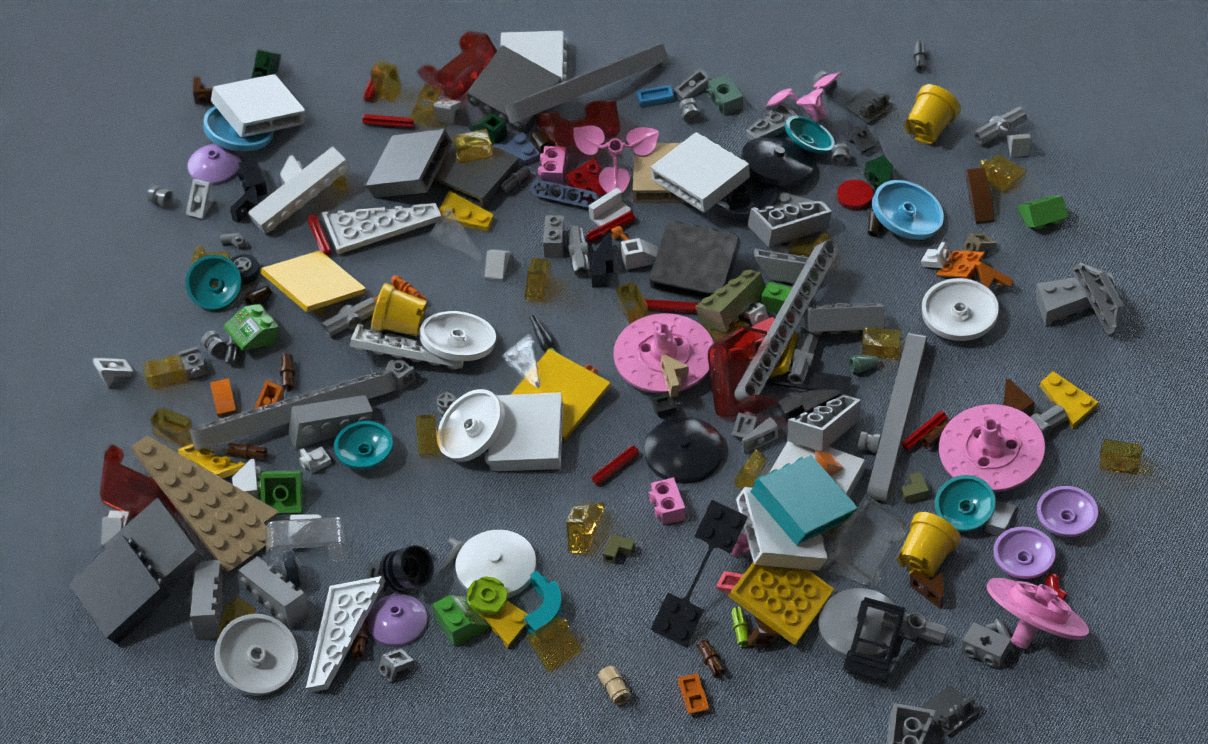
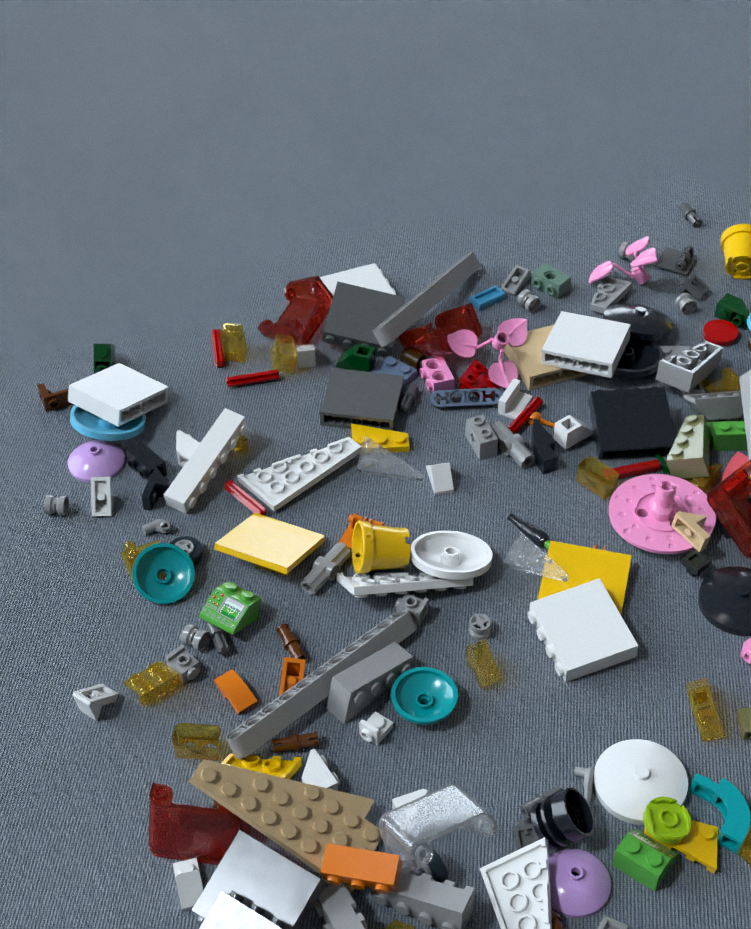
camera: 25 degrees left, 5 degrees down
(232, 553) = (361, 868): none -> orange brick
(258, 296) = (215, 576): dark brown cone -> none
(283, 490) = (363, 773): bright green slope -> none
(409, 163) = (303, 408): brick -> none
(470, 425) = (528, 639): white dish -> none
(480, 146) = (359, 375): clear yellow piece -> none
(538, 279) = (493, 479): clear yellow slope -> none
(615, 465) = (687, 636): red axle -> none
(756, 313) = (718, 453): white bracket -> none
(809, 135) = (650, 295): teal dish -> none

